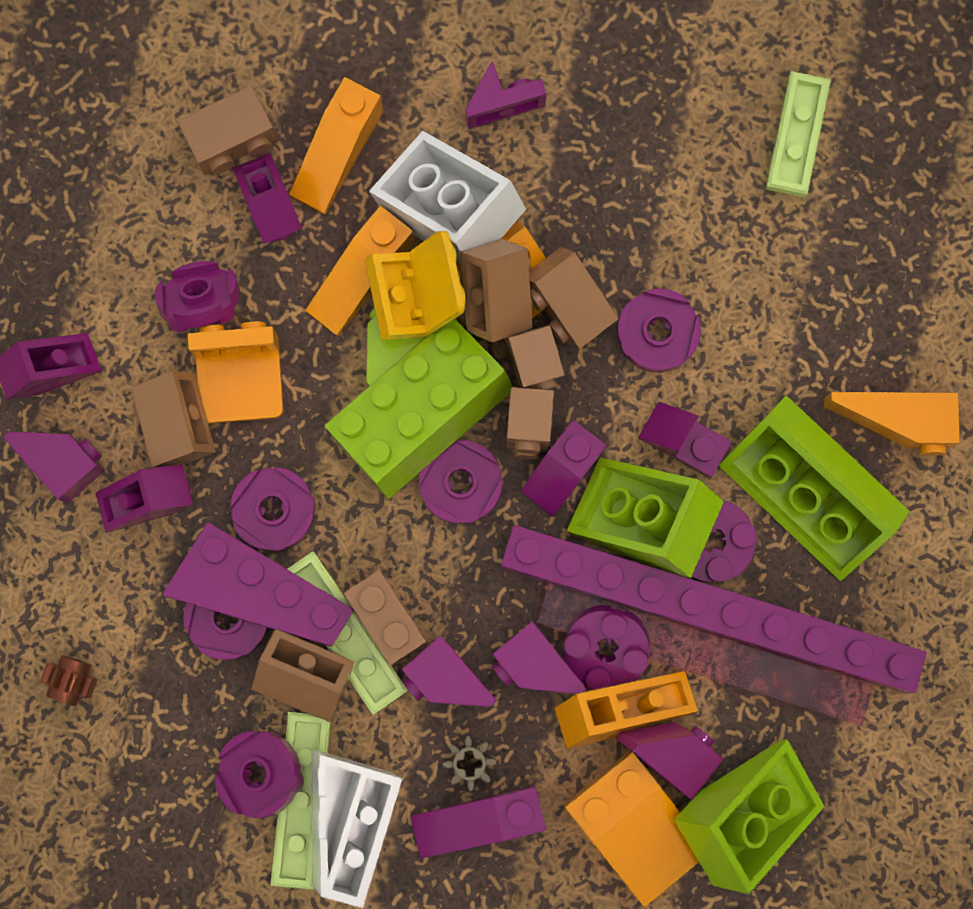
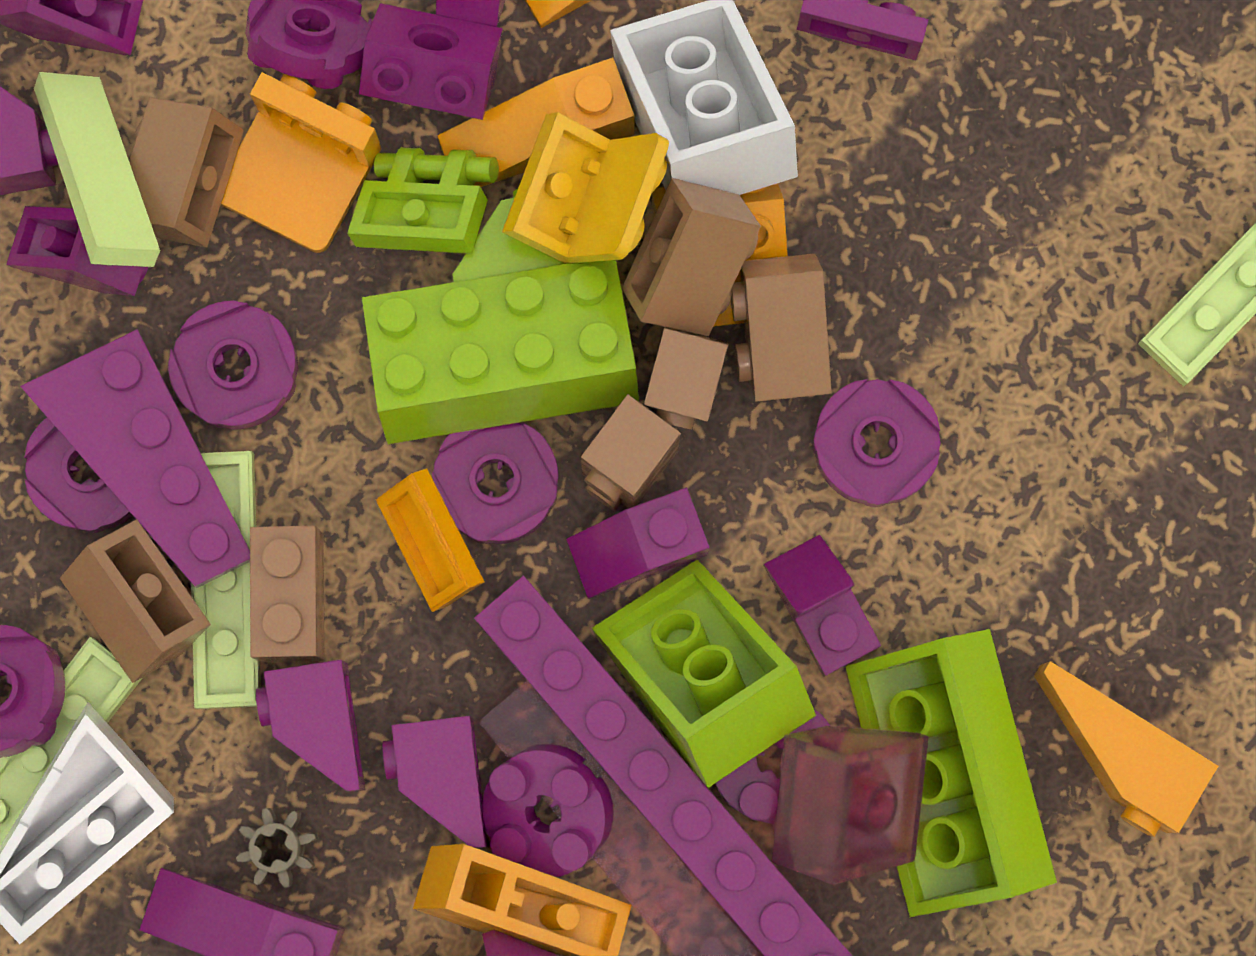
camera: 30 degrees right, 0 degrees up
(128, 446) = (96, 170): none -> yellowish green tile
(277, 270) = (430, 61): none -> magenta brick
(328, 359) = (418, 214): none -> lime plate
(445, 538) = (429, 540): none -> light orange tile
(770, 538) = (848, 801): none -> clear pink slope

